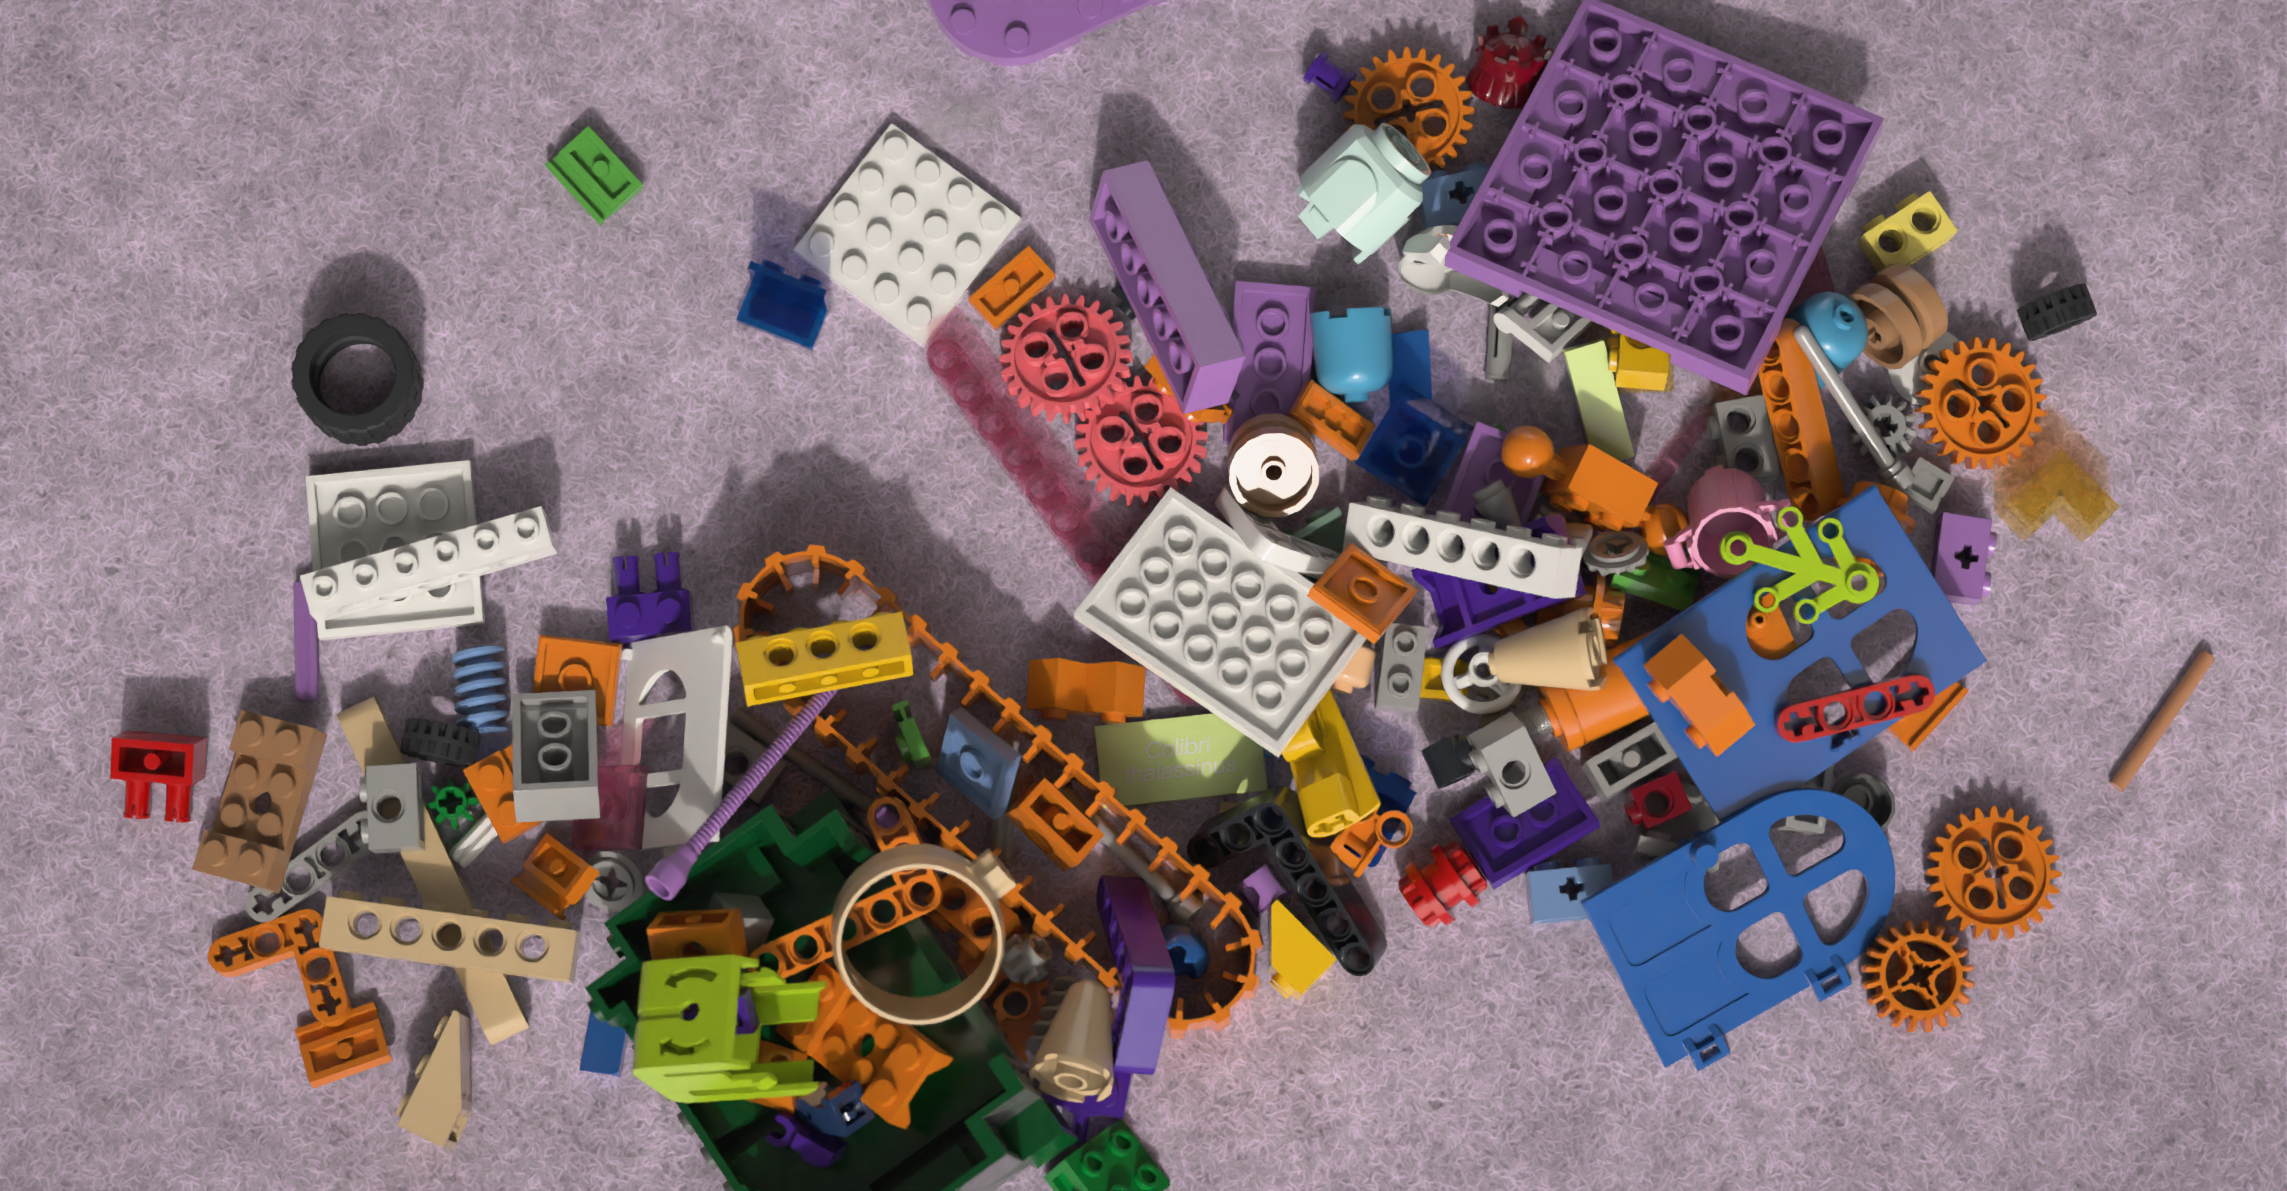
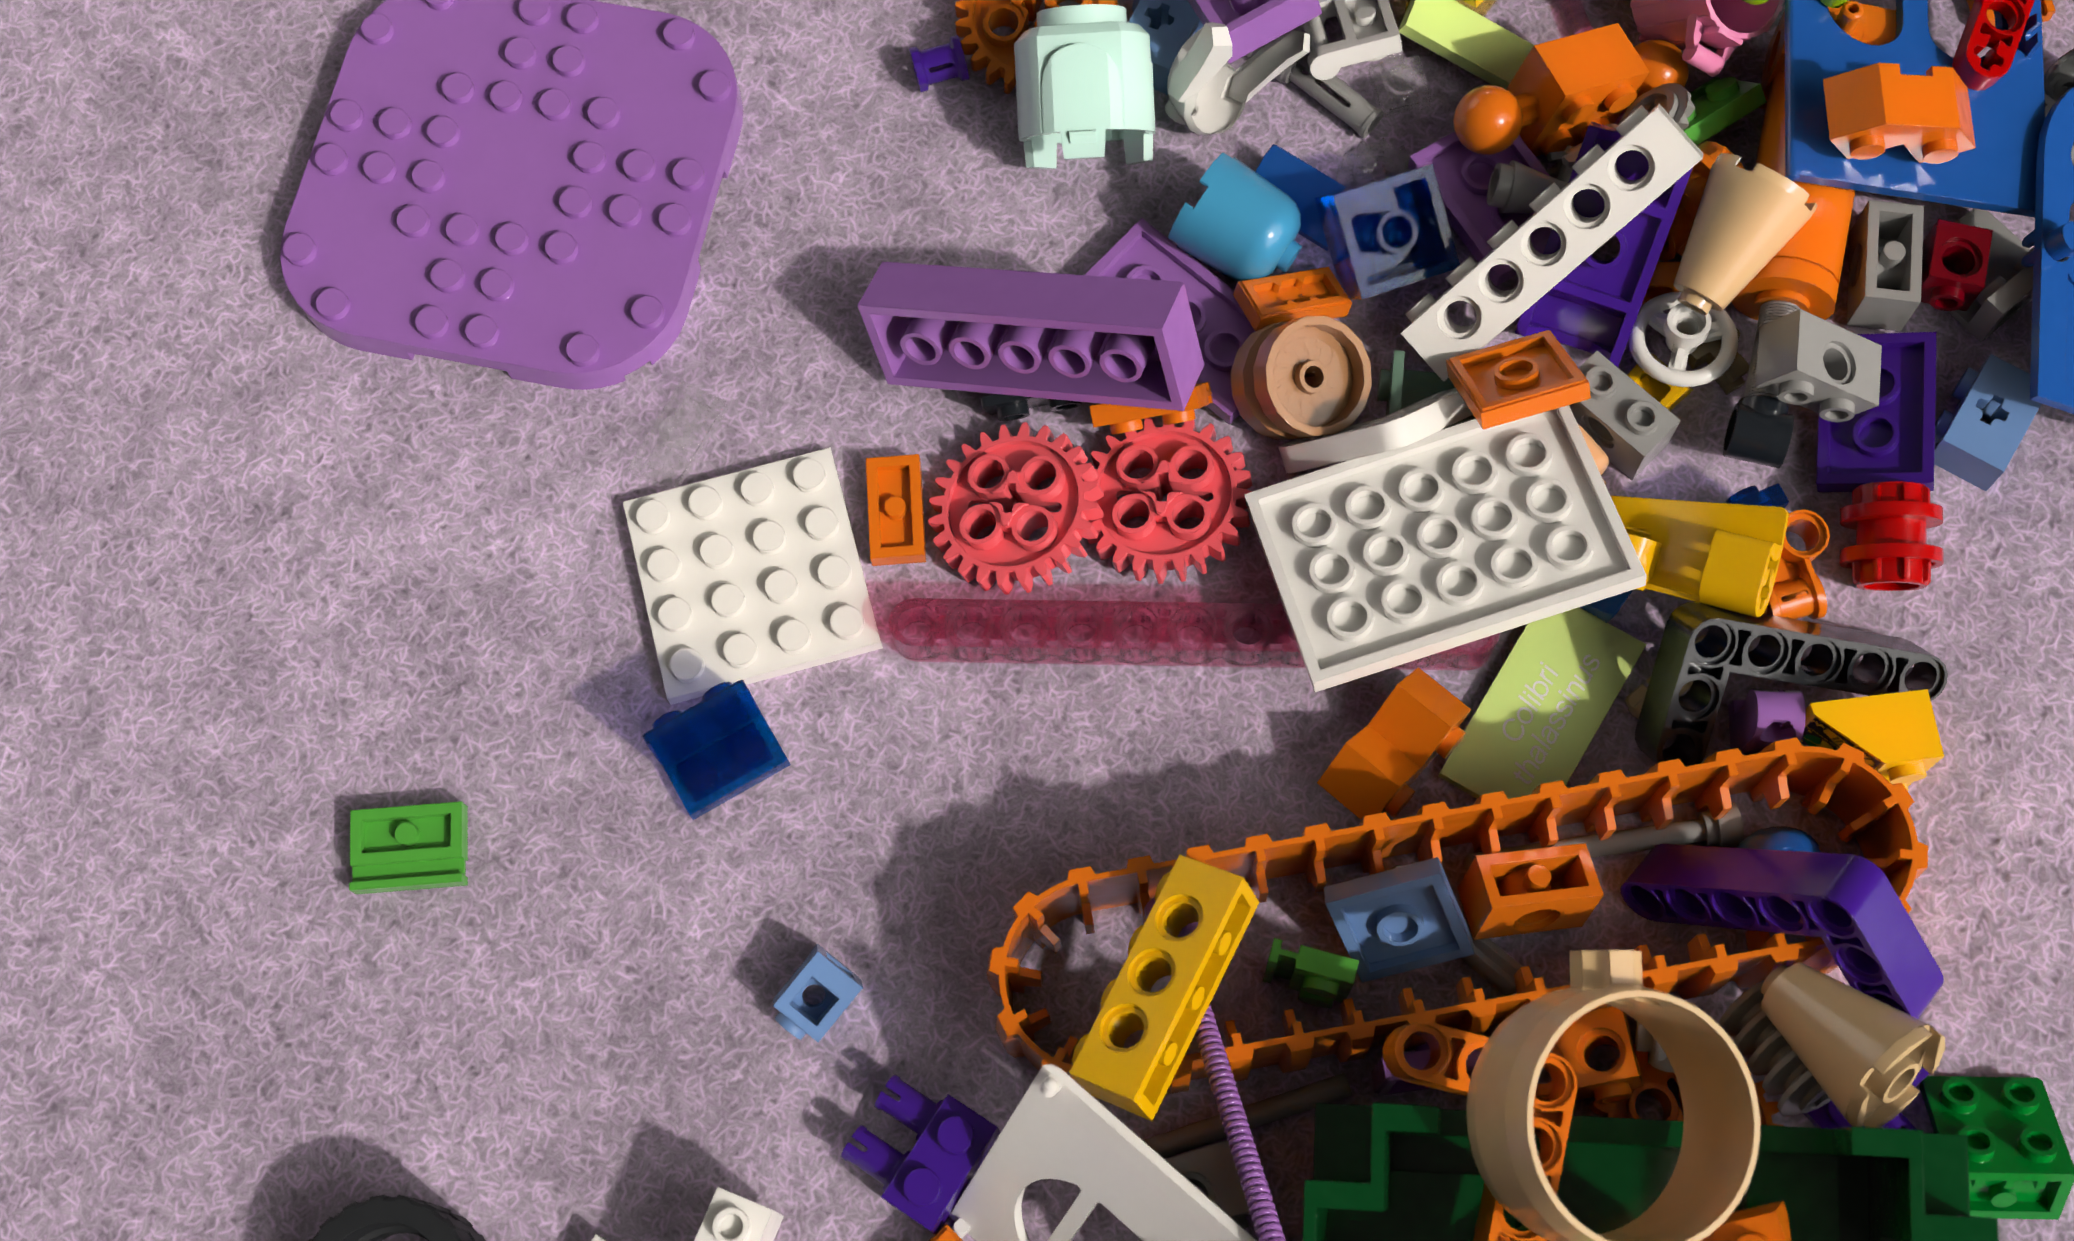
camera: 40 degrees left, 10 degrees down
(707, 474) = (840, 990): none -> medium blue brick

